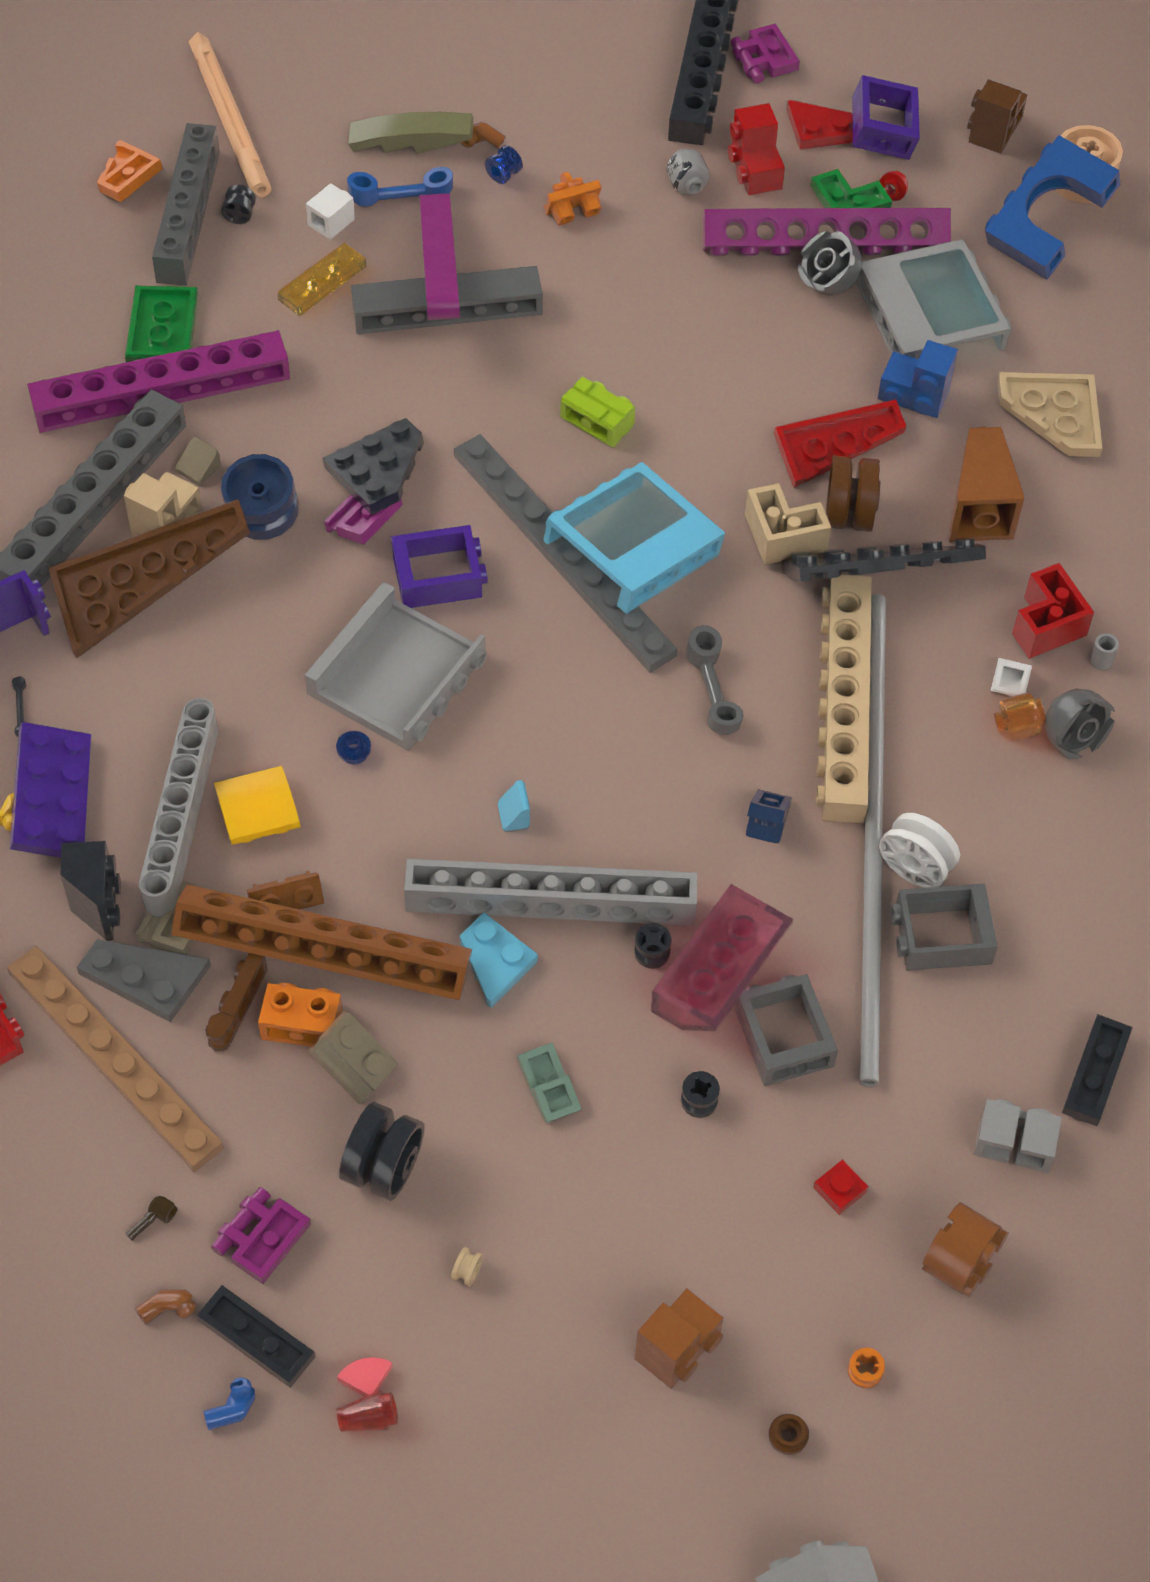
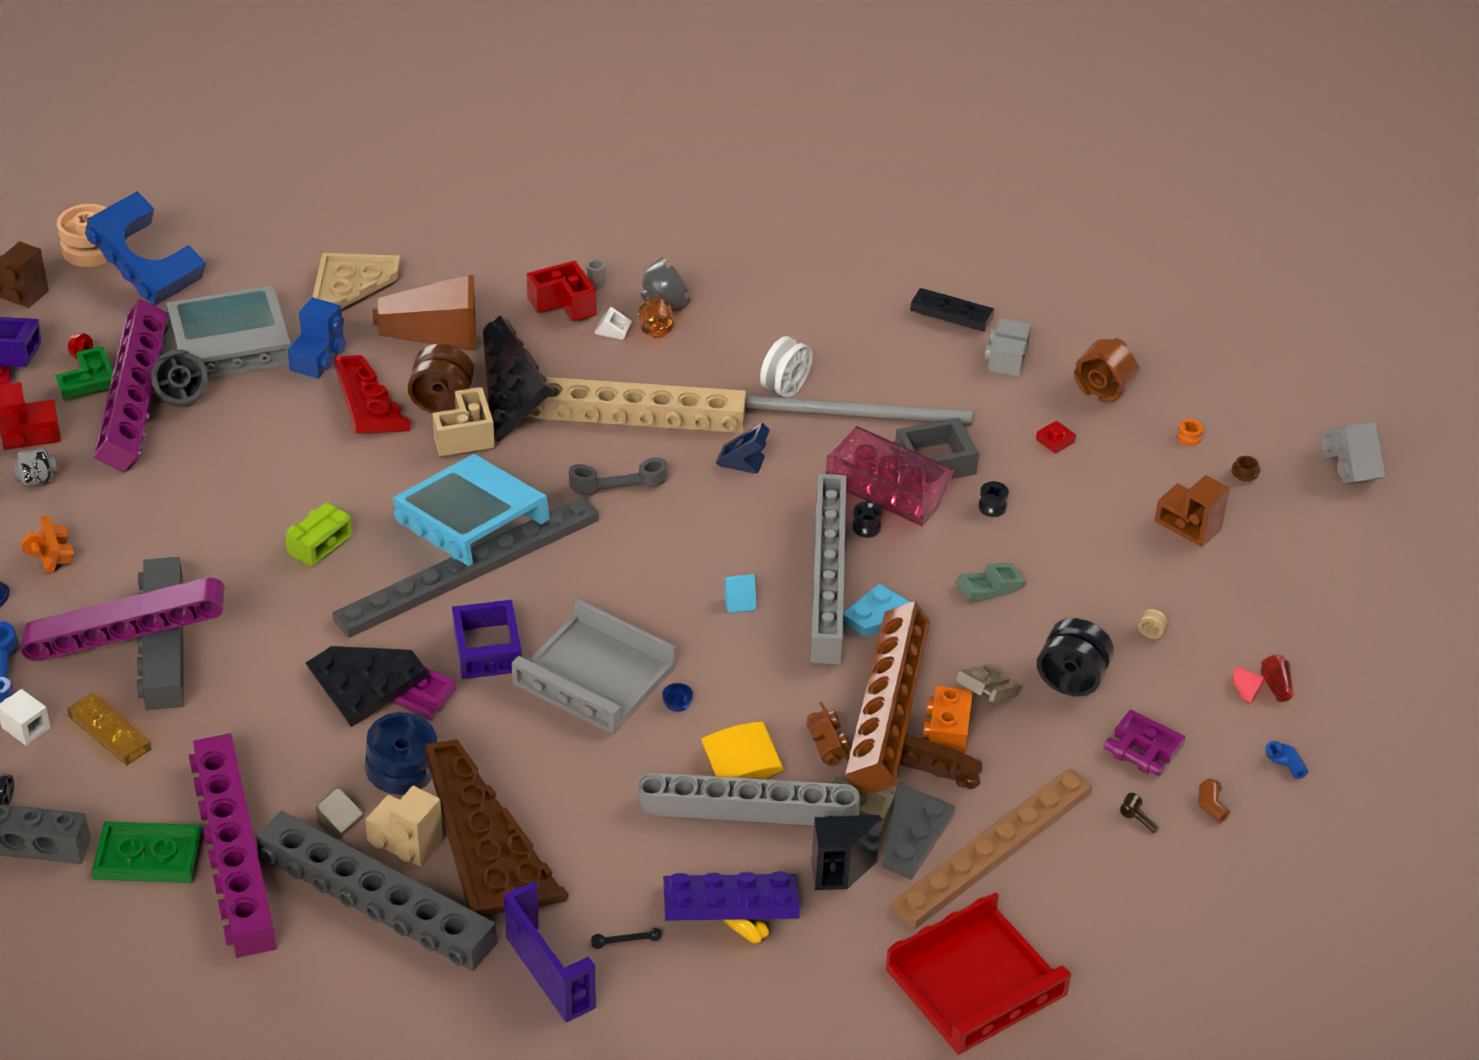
camera: 90 degrees left, 15 degrees down
(256, 1336) = (1229, 743): black plate -> none
(945, 899) = (854, 351): dark grey window -> none

